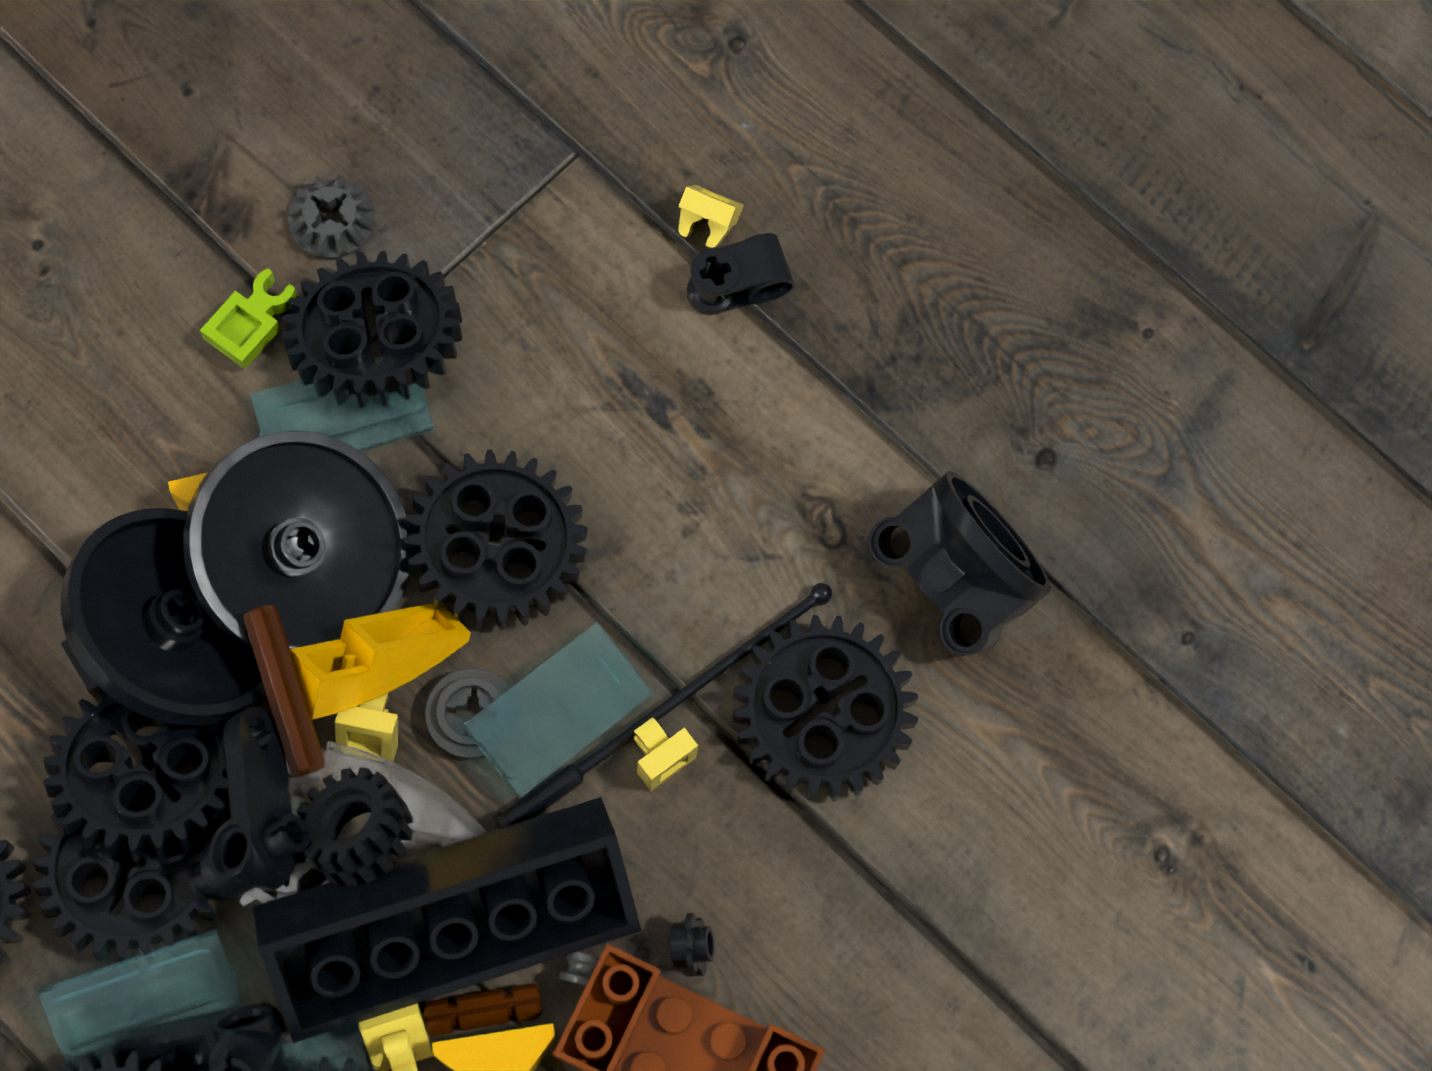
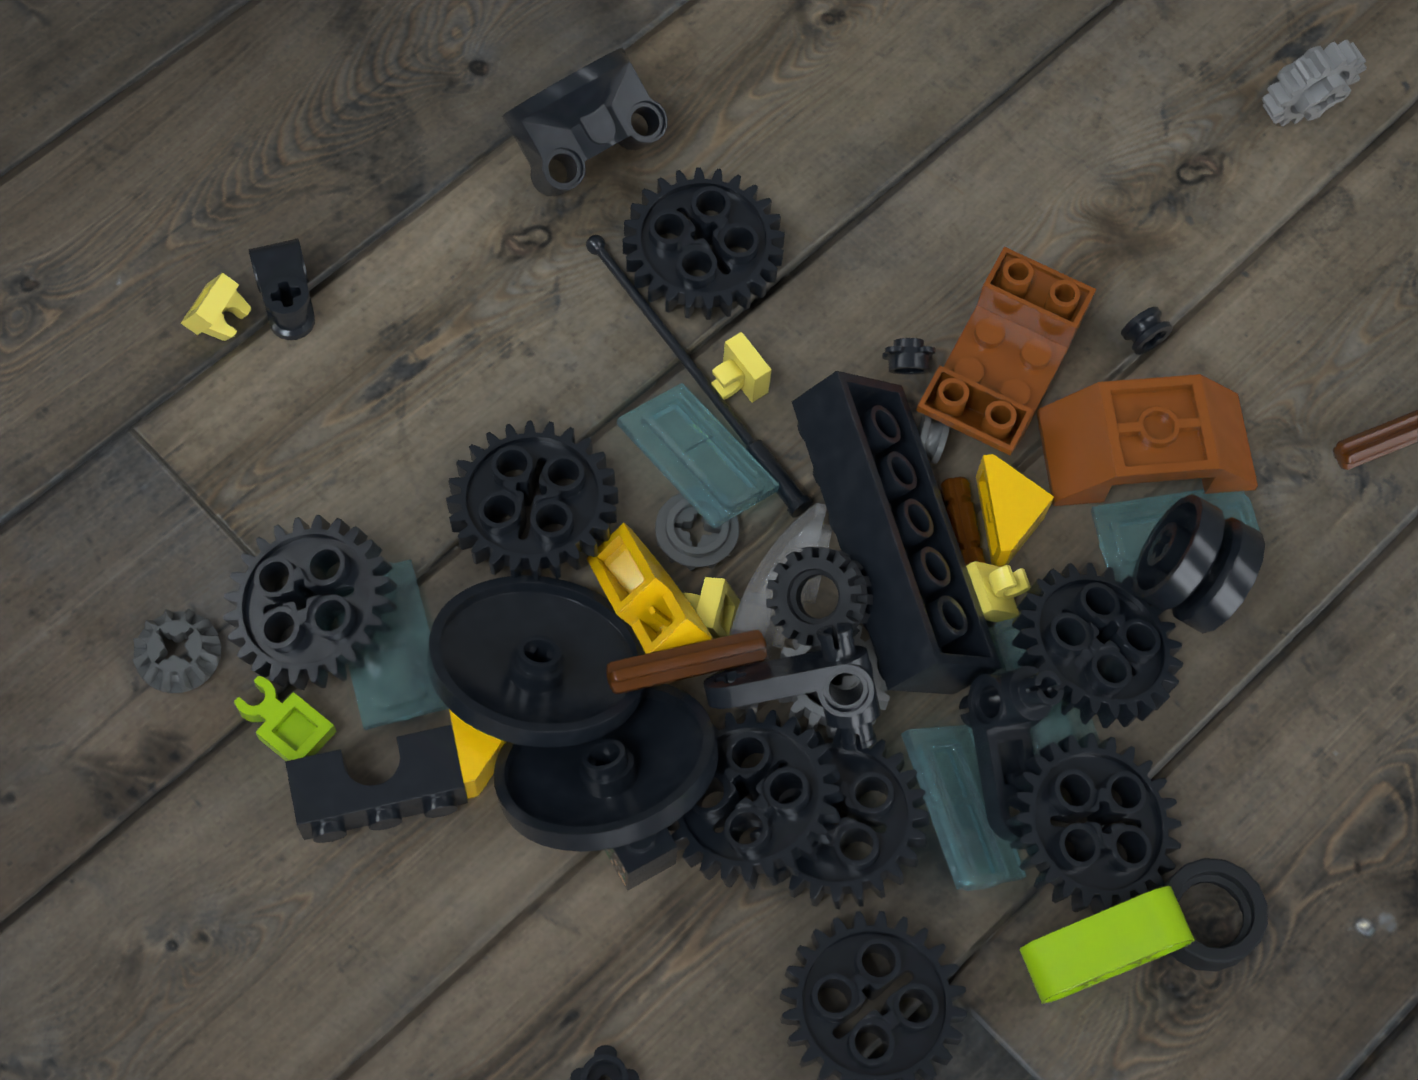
camera: 85 degrees left, 5 degrees down
(169, 364) = (332, 802): none -> black arch

